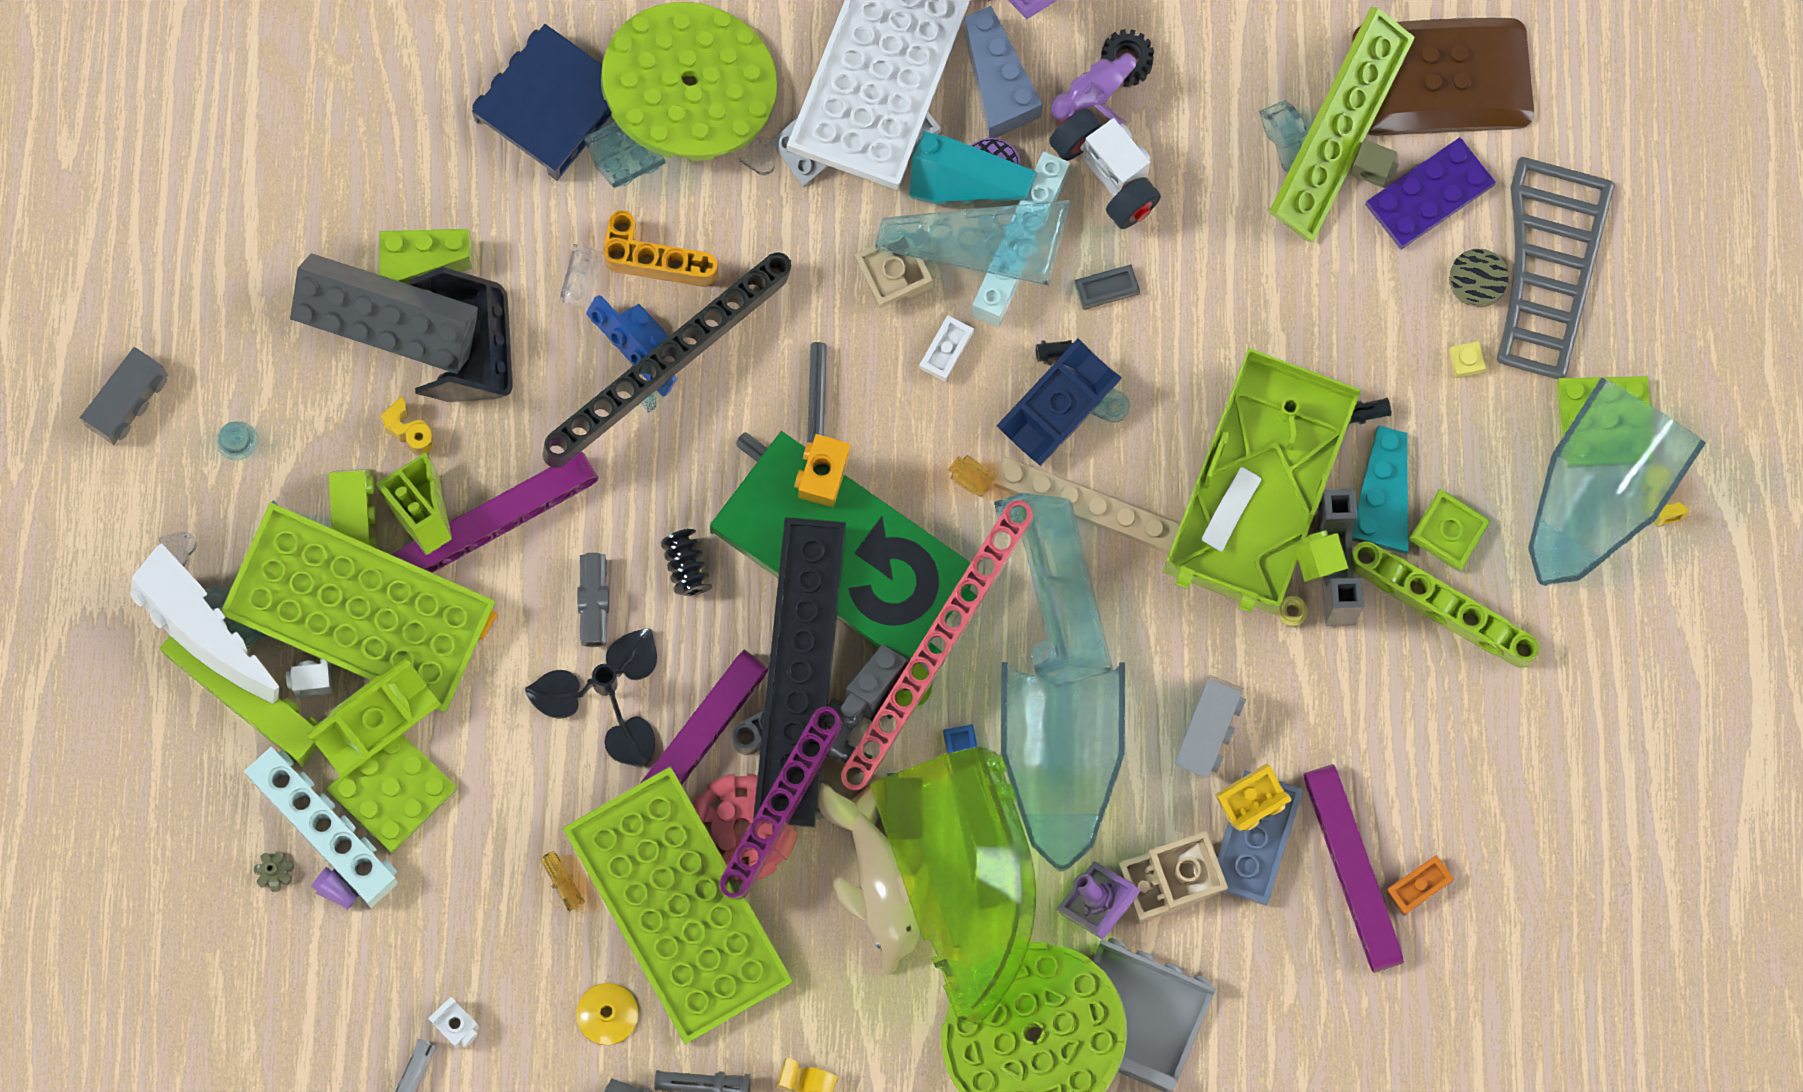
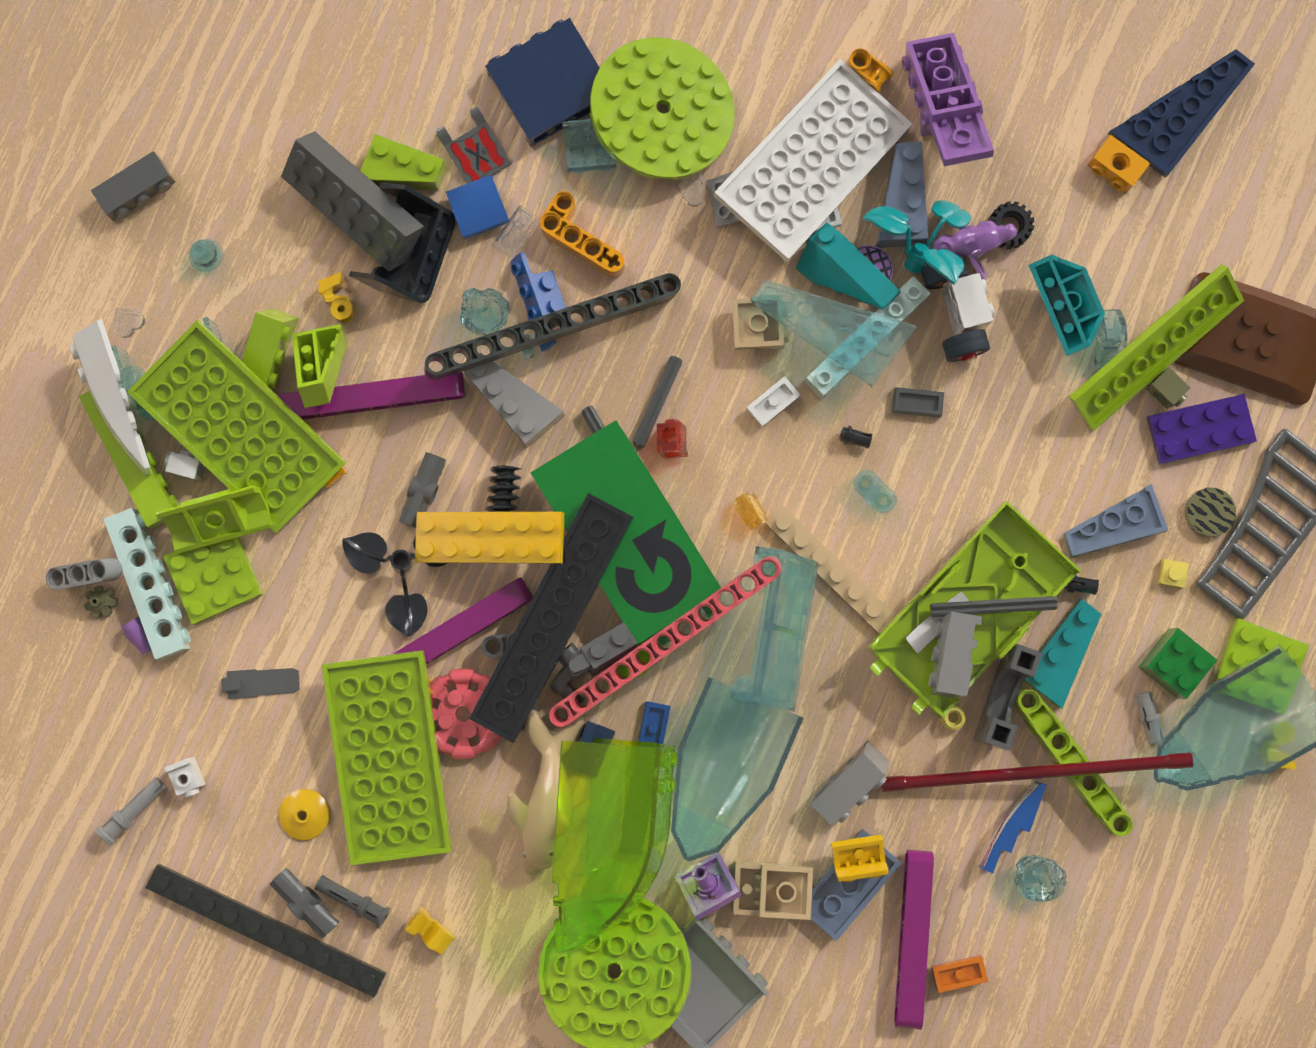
camera: 20 degrees right, 10 degrees up
(233, 845) = (83, 573): none -> light grey beam
(496, 887) = (260, 682): none -> dark grey piece
(498, 210) = (477, 151): none -> flag
(525, 267) = (477, 207): none -> blue slope
(562, 881) = (310, 699): clear yellow axle -> none
(581, 375) = (483, 311): none -> clear light blue hair
(656, 460) = (515, 402): none -> light grey wedge
(693, 613) = (490, 537): none -> yellow plate
(781, 787) = (482, 723): magenta beam -> none
(823, 488) = (631, 481): light orange brick -> none
(846, 422) = (665, 433): none -> clear red brick
(1040, 126) = (943, 260): none -> teal plant
(1059, 402) = (842, 482): dark blue piece -> none
(1224, 111) = (1069, 301): none -> teal wedge
(1260, 533) = (953, 655): none -> light grey wedge
(1282, 466) = (995, 606): none -> dark grey axle
(1320, 555) = (992, 693): lime brick -> none
(1390, 325) = (1125, 522): none -> sand blue wing
(1411, 691) = (1019, 817): none -> blue slope
(1449, 530) = (1101, 704): lime plate -> none
(1462, 742) = (1039, 878): none -> clear light blue hair
(1507, 523) = (1149, 717): none -> light grey pin
(1512, 451) = (1178, 663): none -> green brick
(1544, 553) = (1169, 761): none -> dark red piece

